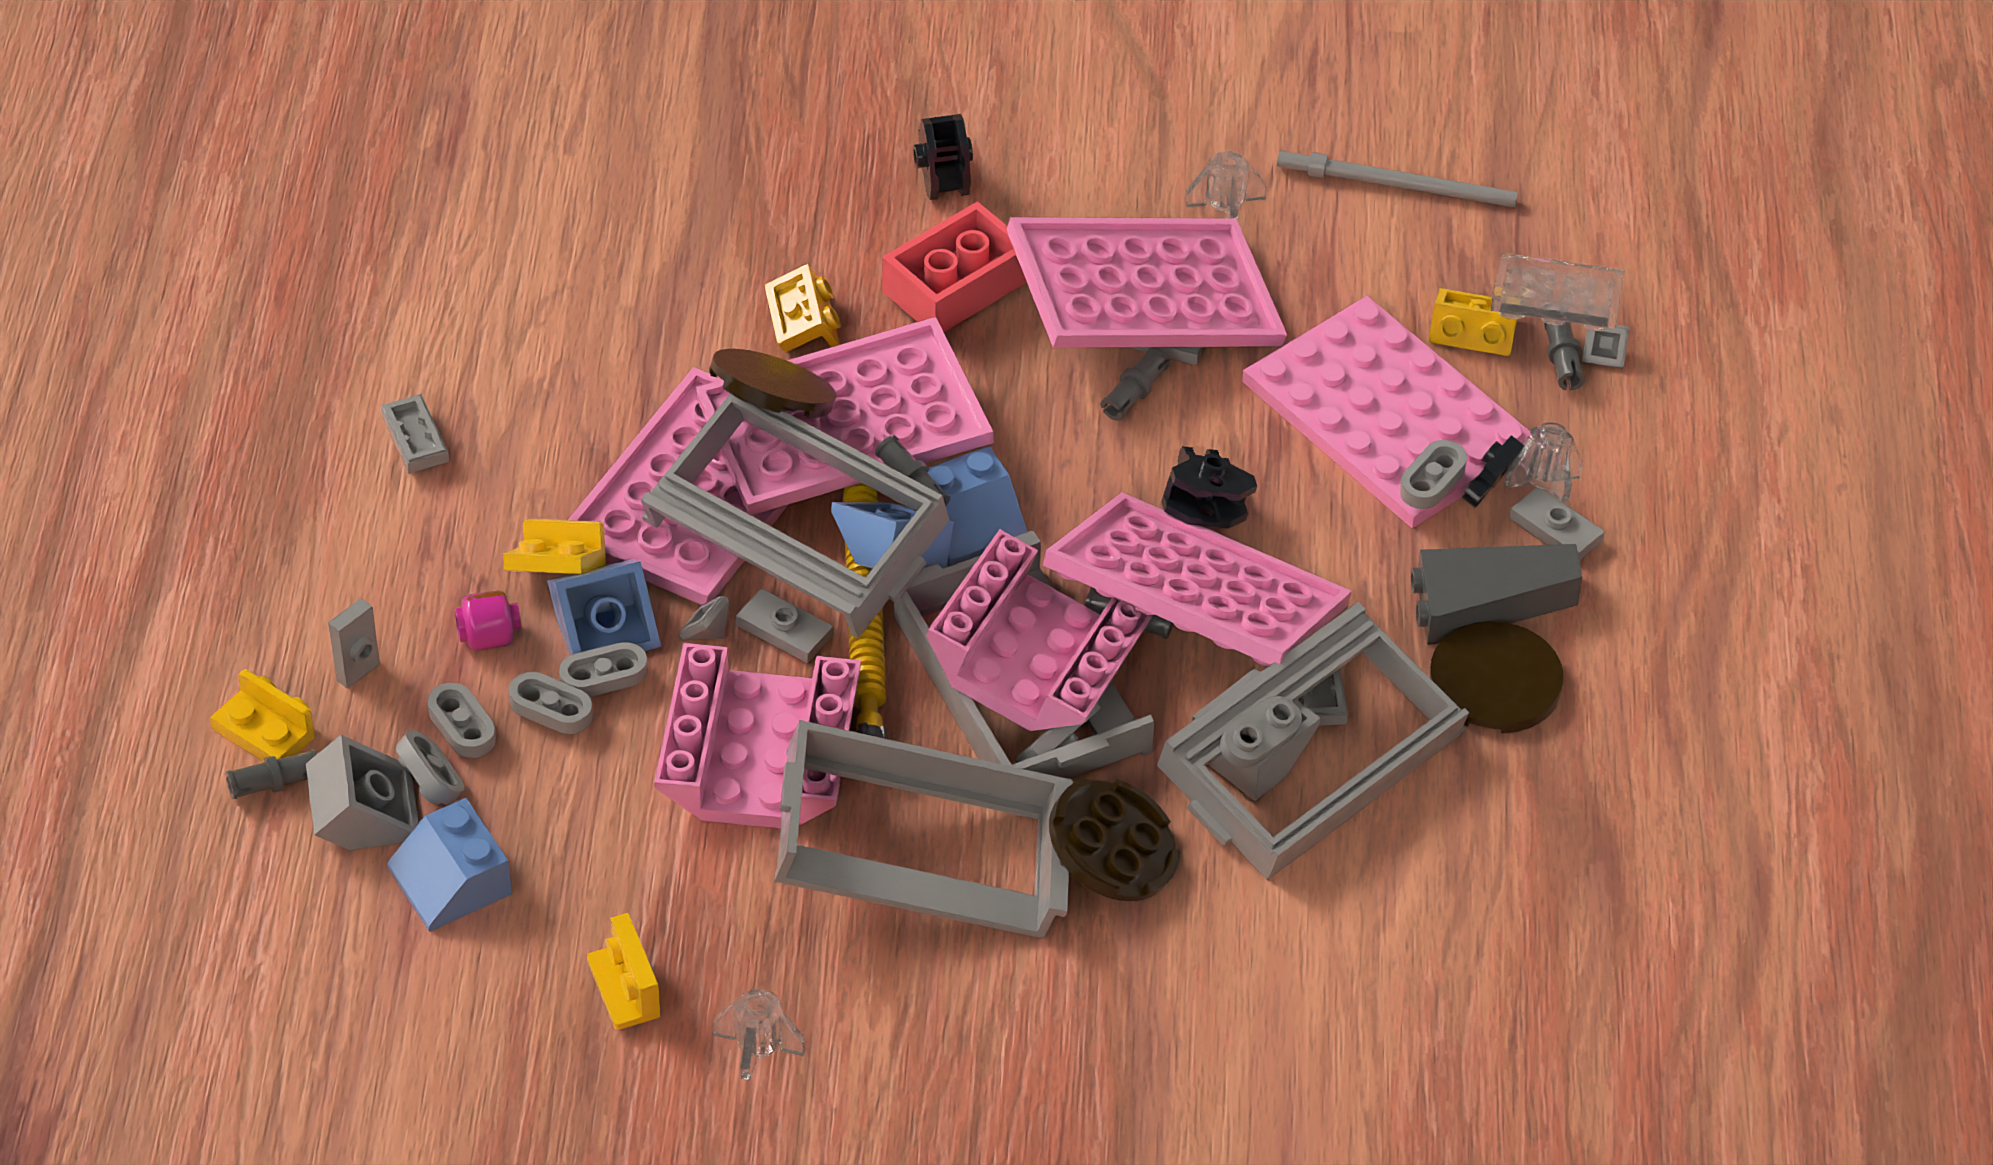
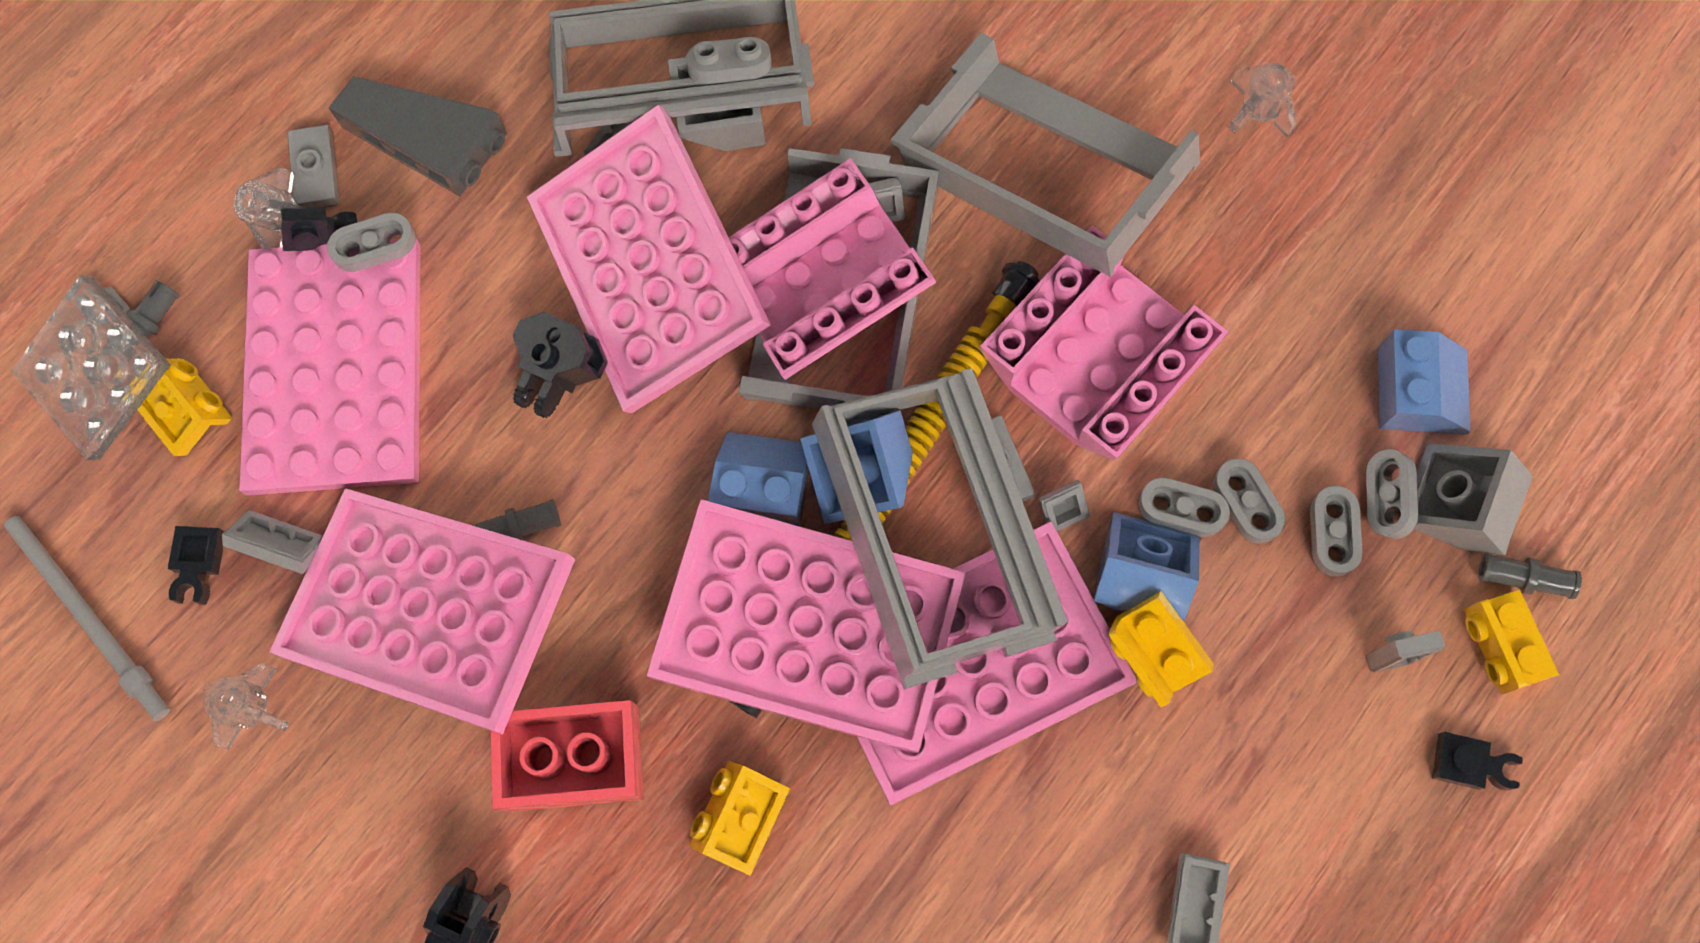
camera: 140 degrees left, 25 degrees up
(251, 629) = (1469, 763): none -> black plate
(487, 620) = (1257, 621): dark pink head -> none
(625, 976) = (1343, 195): yellow bracket -> none
(772, 382) = (871, 658): dark brown tile -> none
(899, 459) = (807, 494): dark grey pin -> none
(1113, 839) = (894, 82): dark brown tile -> none
(1306, 279) = (272, 541): none -> light grey plate
(1353, 246) = (193, 555): none -> black plate
(1498, 675) = (488, 61): dark brown tile -> none

